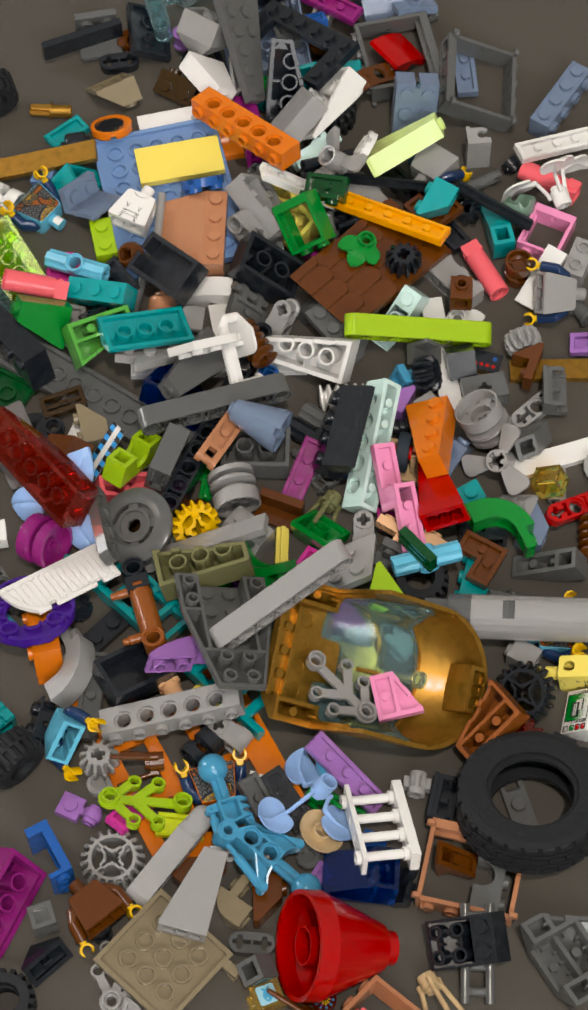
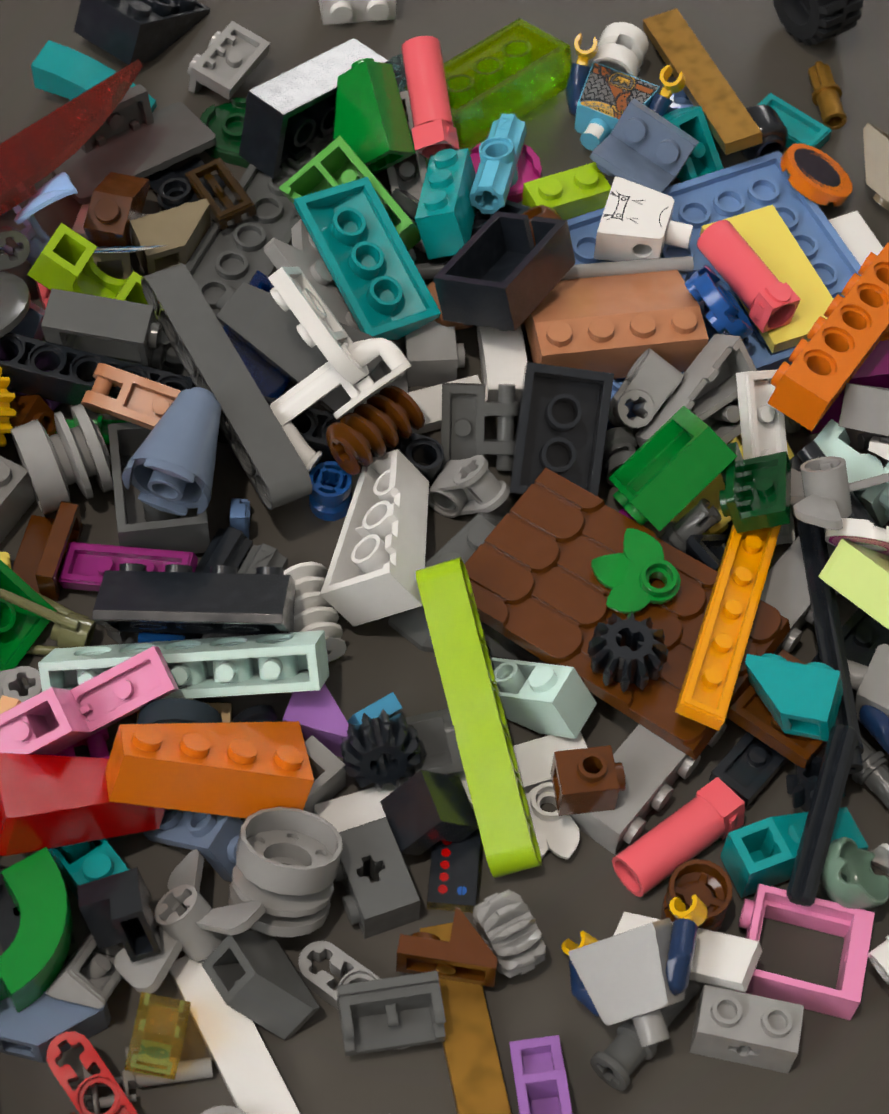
camera: 75 degrees right, 5 degrees down
(186, 167) = (766, 297): none -> coral piece
(496, 479) = (121, 912): none -> black piece

